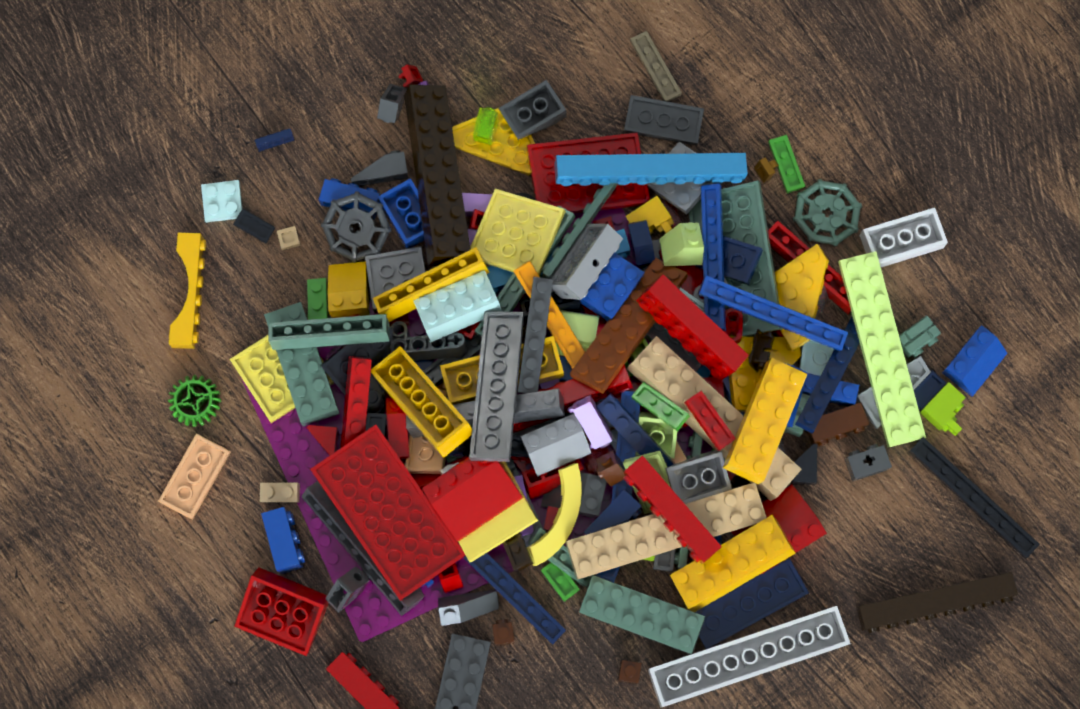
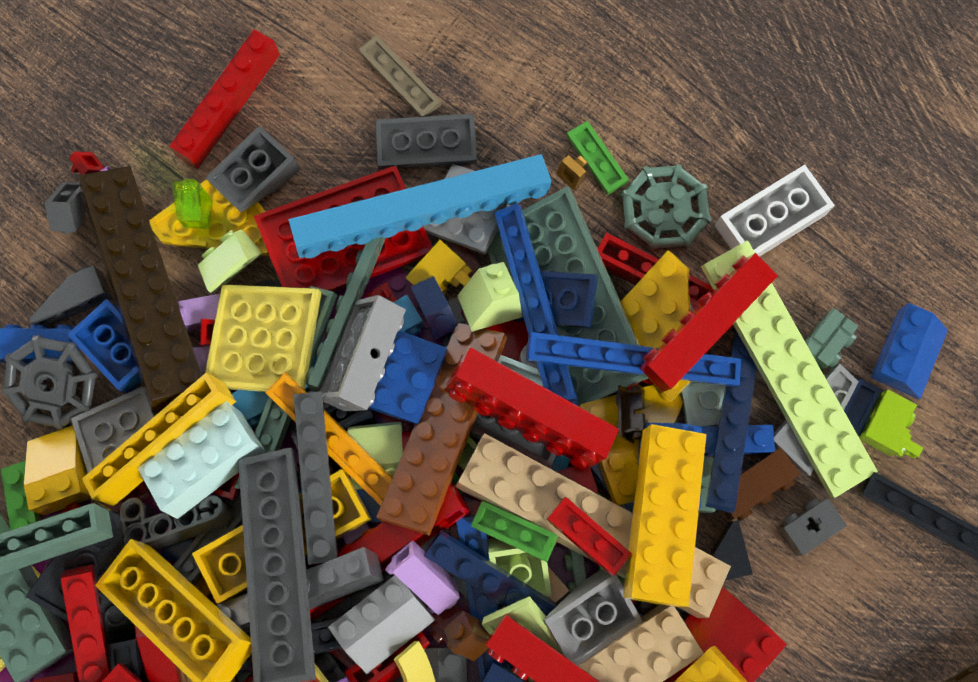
camera: 10 degrees left, 0 degrees up
(500, 172) = (228, 259): none -> yellowish green slope
(523, 52) = (225, 99): none -> red brick
(734, 327) = (585, 391): red plate -> none
(830, 300) = (708, 322): none -> red brick

